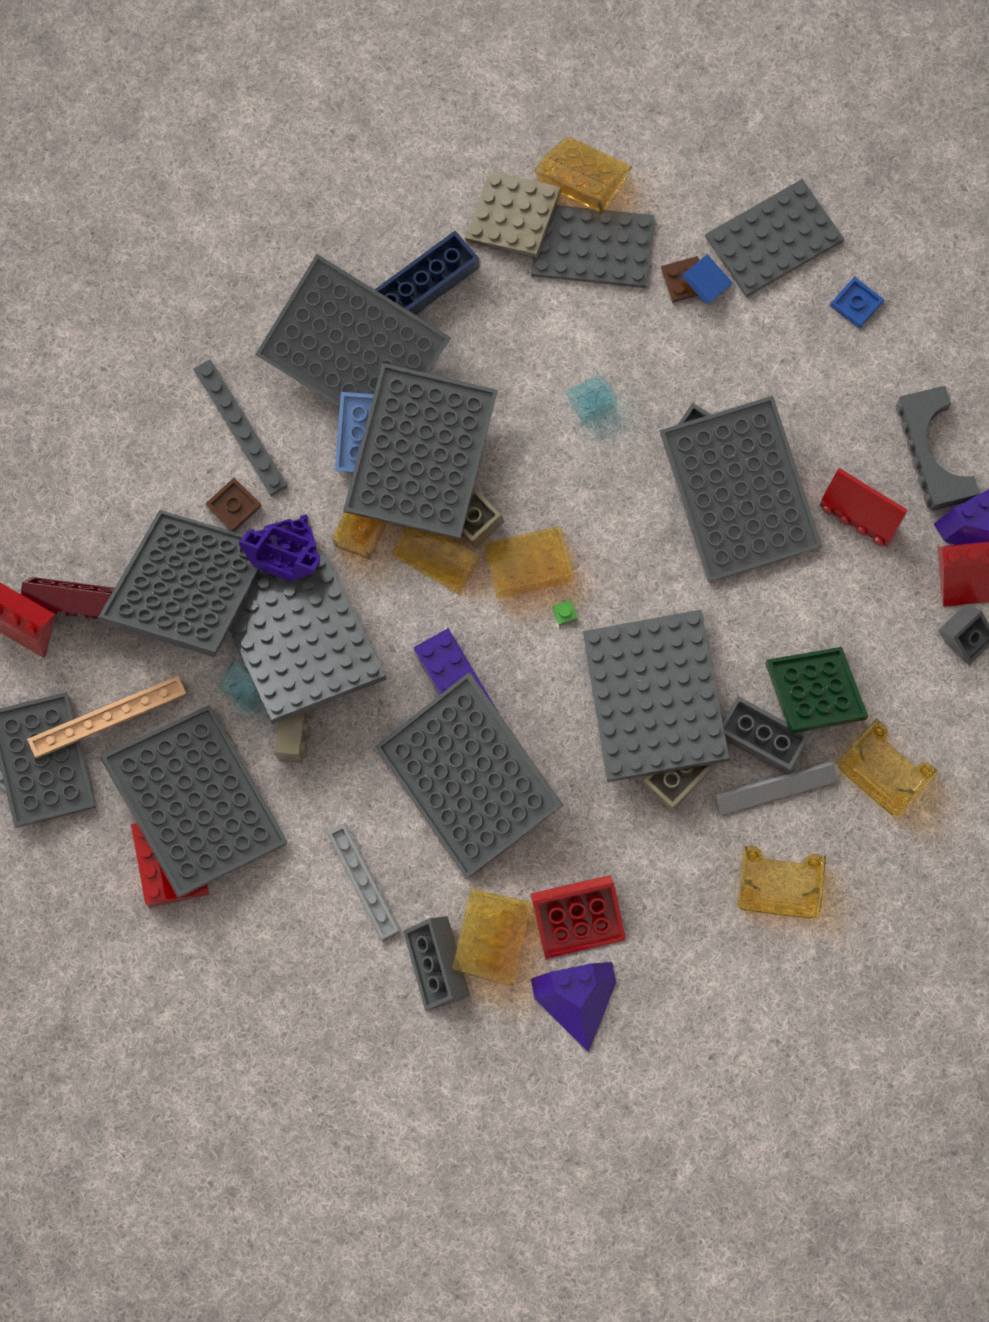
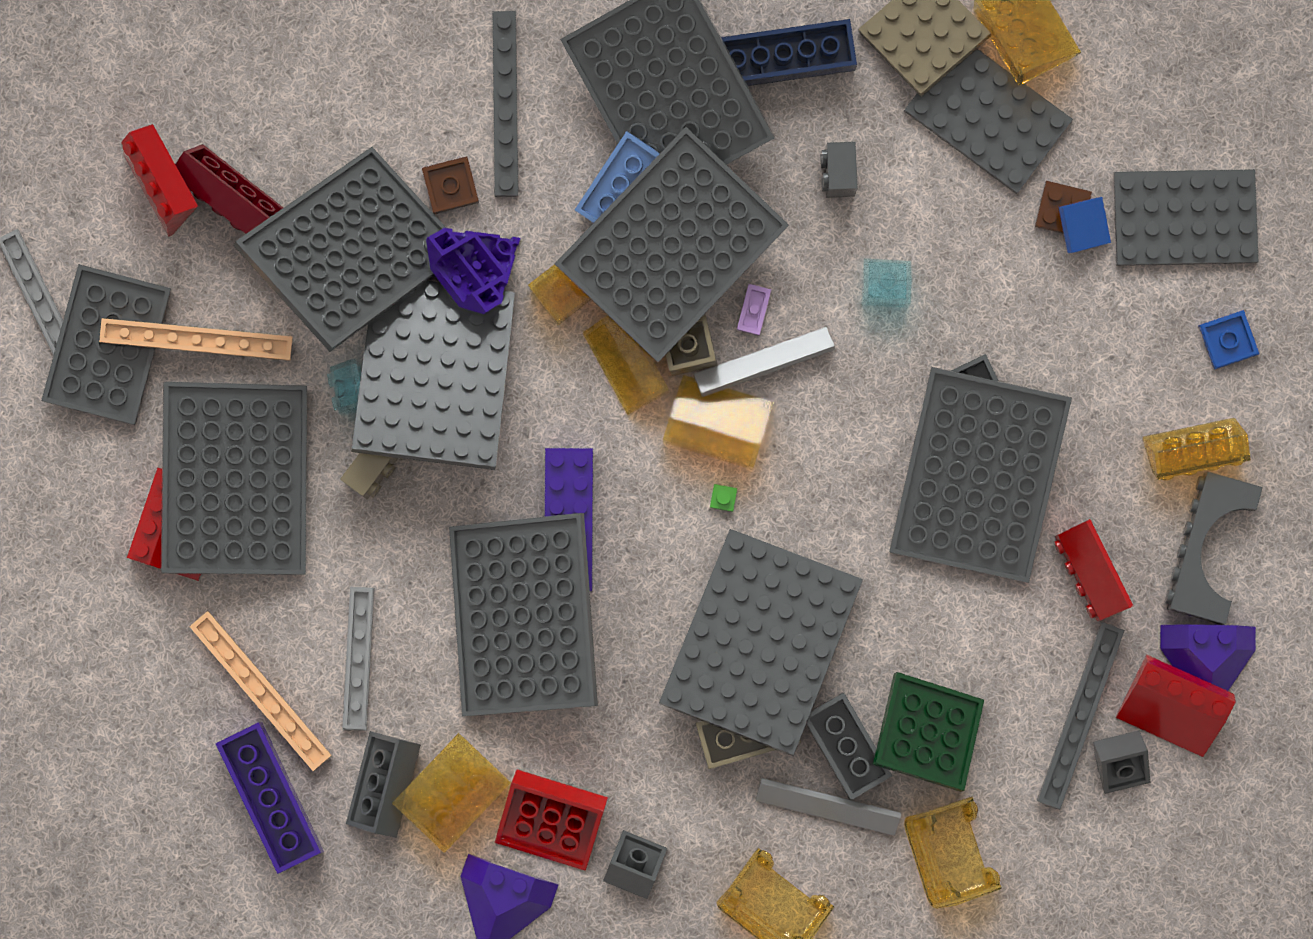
camera: 25 degrees right, 10 degrees up
(303, 947) = (260, 691): none -> light nougat plate
(356, 1021) = (269, 797): none -> dark purple brick
(507, 468) = (753, 309): none -> lavender plate
(510, 336) = (840, 169): none -> dark grey brick
(536, 500) = (764, 361): none -> tile
(660, 913) = (635, 864): none -> dark grey slope
(883, 386) = (1197, 449): none -> clear yellow slope
(917, 619) = (1080, 715): none -> dark grey plate

